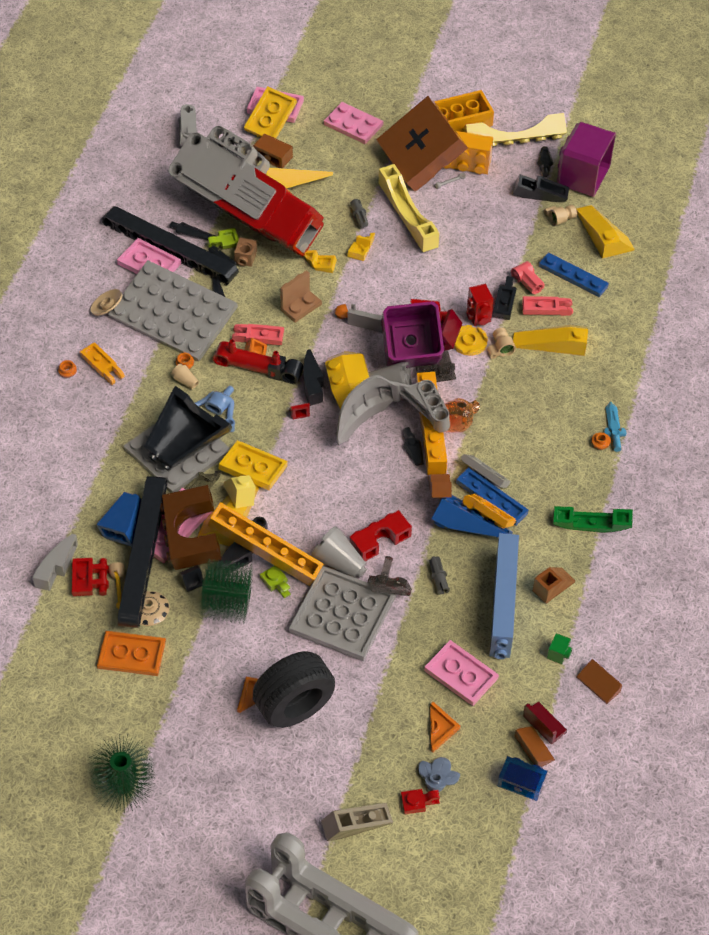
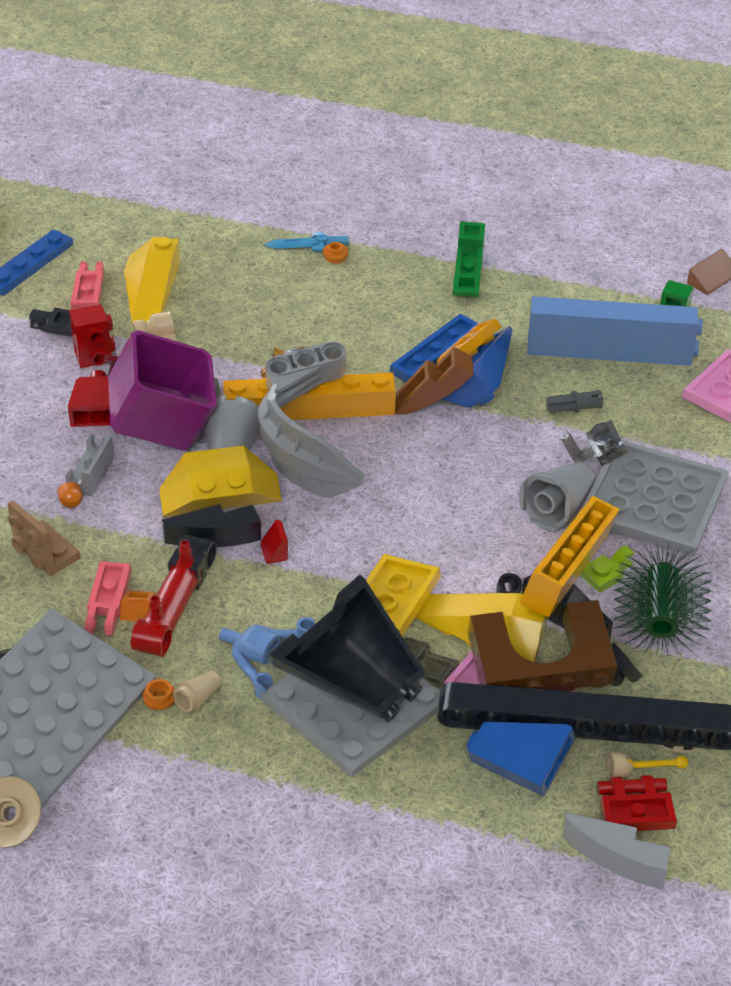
camera: 90 degrees left, 10 degrees down
(67, 364) = (164, 862): orange plate -> none
(101, 362) = (153, 816): light orange hinge -> none
(241, 491) = (454, 596): light yellow slope -> none
(391, 526) = (503, 444): red arch -> none
(413, 447) = (345, 425): black piece -> none
(486, 471) = (394, 351): light grey hinge -> none
(525, 274) = (22, 302): coral piece -> none
(551, 583) = (582, 288): dark orange slope -> none

